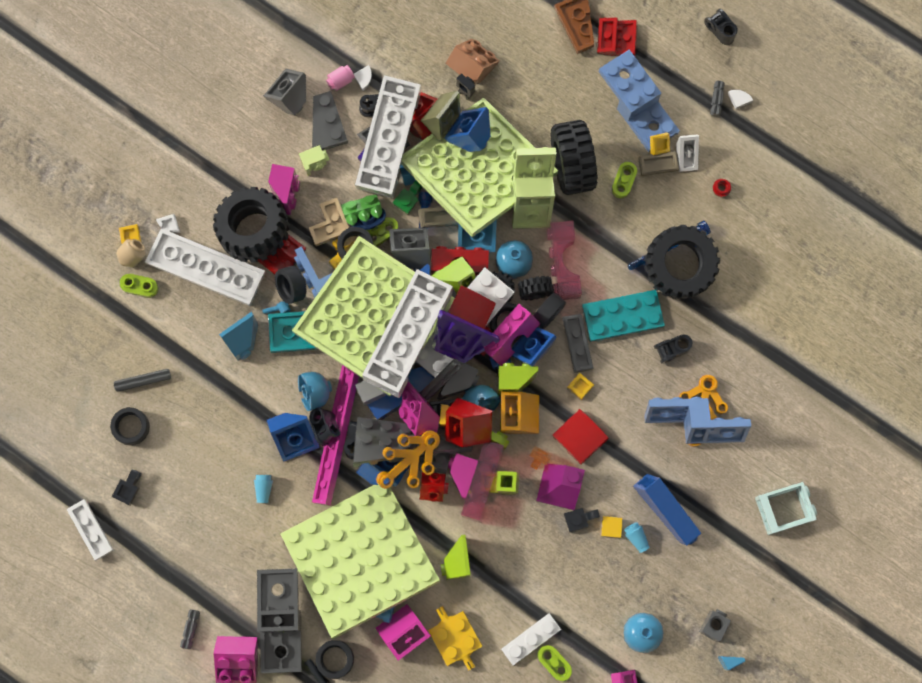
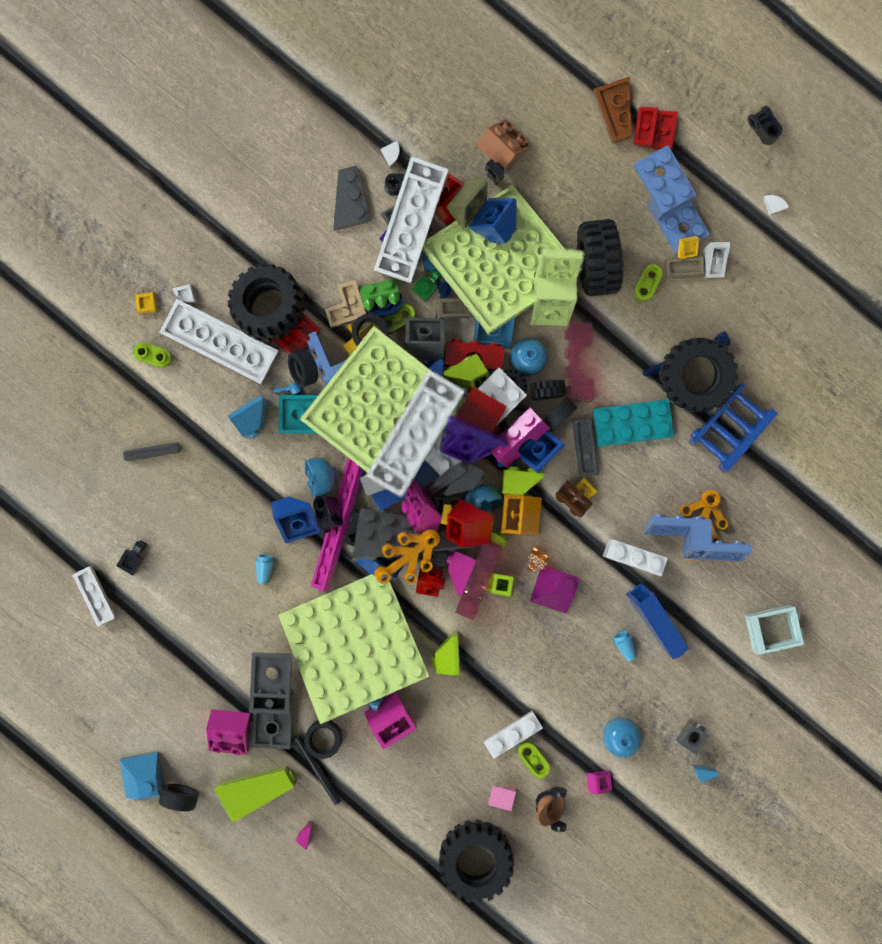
camera: 10 degrees right, 10 degrees up
(118, 416) = (122, 494): black tyre -> none
(130, 253) = (145, 322): tan head -> none
(190, 629) = (186, 698): dark grey axle -> none
(284, 185) = (302, 263): dark pink slope -> none
(288, 91) = (313, 163): dark grey slope -> none
(313, 159) = (334, 237): yellowish green brick -> none
(340, 78) = (366, 152): bright pink brick -> none
(455, 638) = (440, 728): yellow plate -> none
(570, 393) = (573, 499): none -> reddish brown hips
(578, 519) = (568, 623): black plate -> none
(580, 436) = (579, 542): red slope -> none
(611, 527) = (601, 633): yellow tile -> none
(645, 447) = (635, 557): none -> white arch
(670, 349) = (677, 461): black piece -> none
(717, 98) = (752, 202): dark grey axle -> none
(721, 182) = (751, 295): red plate -> none
(739, 313) = (739, 445): none -> blue fence

